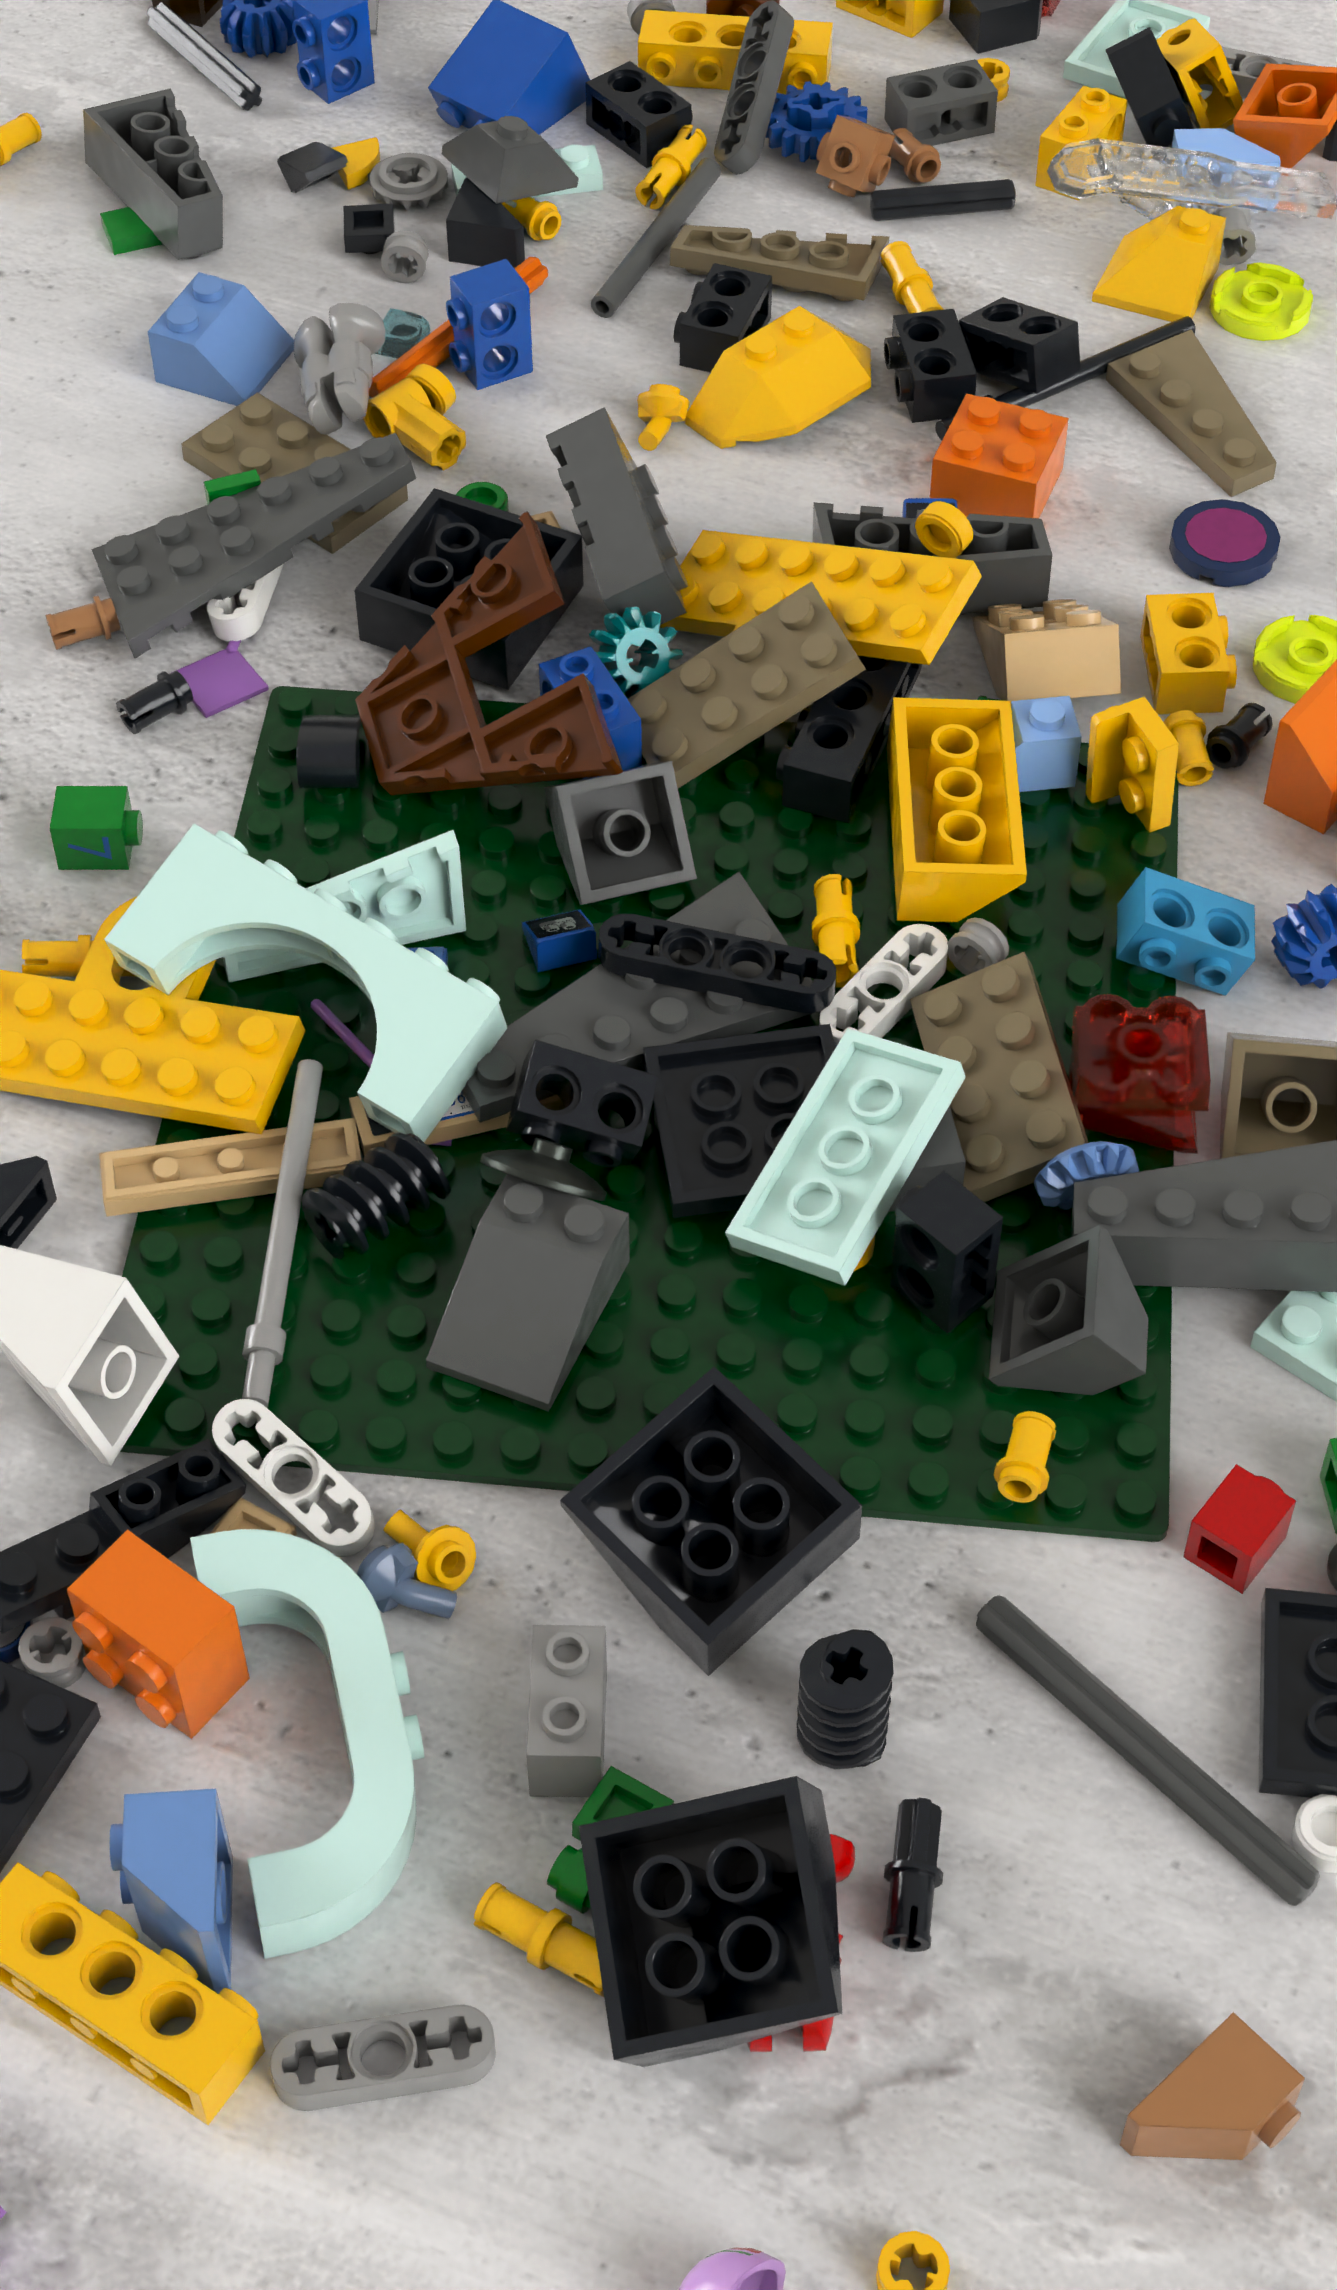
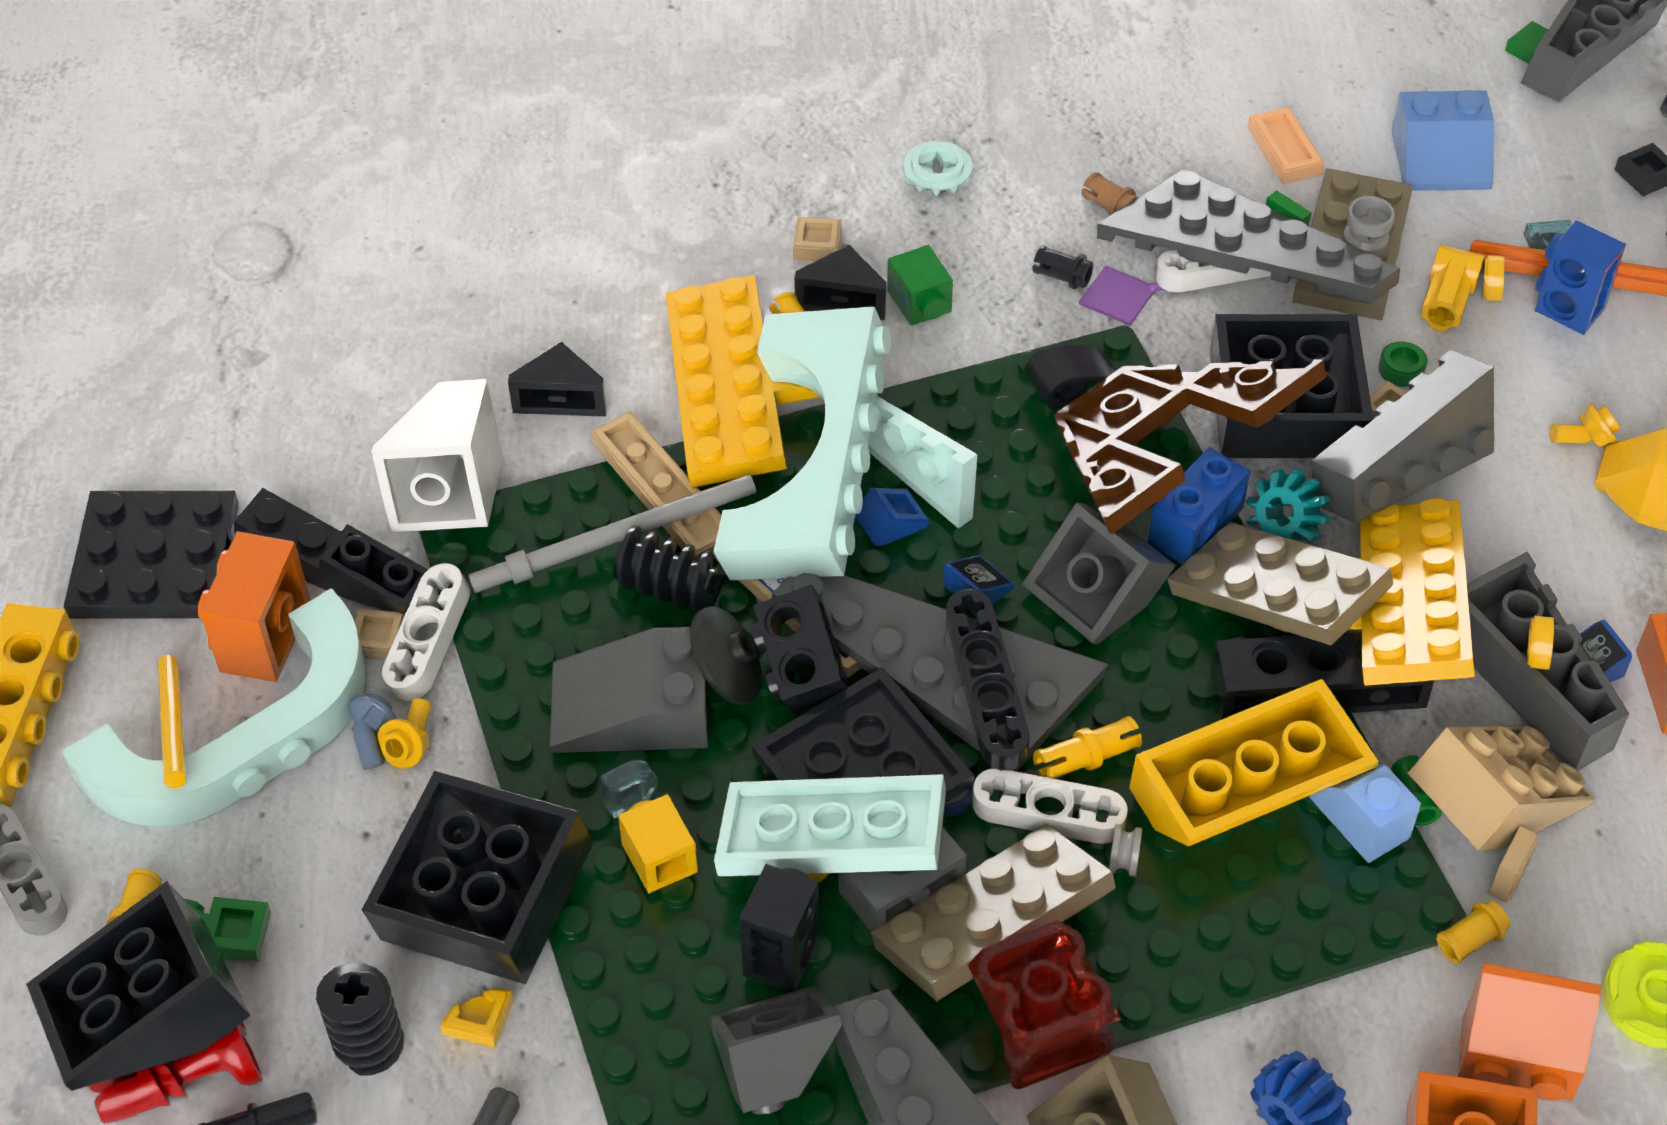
camera: 65 degrees right, 0 degrees up
(46, 890) = (840, 282): none -> black slope
(115, 463) = (1286, 145): none -> light nougat tile
(179, 1876) = (73, 695): medium blue slope -> none
(293, 1787) = (171, 722): none -> yellow bar
(313, 431) = (1369, 224): none -> light grey wheel
(338, 363) = (1462, 211): light grey piece -> none
(406, 244) = (1632, 202): light grey bush -> none
(566, 1710) = (302, 858): light grey brick -> none
(662, 1342) = (627, 786): none -> clear light blue tile
(752, 1336) = (657, 843): none -> yellow brick
(870, 1601) = (479, 1018): none -> yellow tile
(1022, 1470) = (637, 1063): yellow pin -> none
(1078, 1164) = (918, 1001): medium blue gear -> none
(1133, 758) = (1386, 878): yellow bracket -> none
(1137, 680) = (1514, 864): none -> tan tile
(1185, 931) = (1251, 989): dark azure brick -> none
(1186, 653) = (1577, 881): yellow brick -> none
(1231, 743) = (1508, 957): black pin -> none

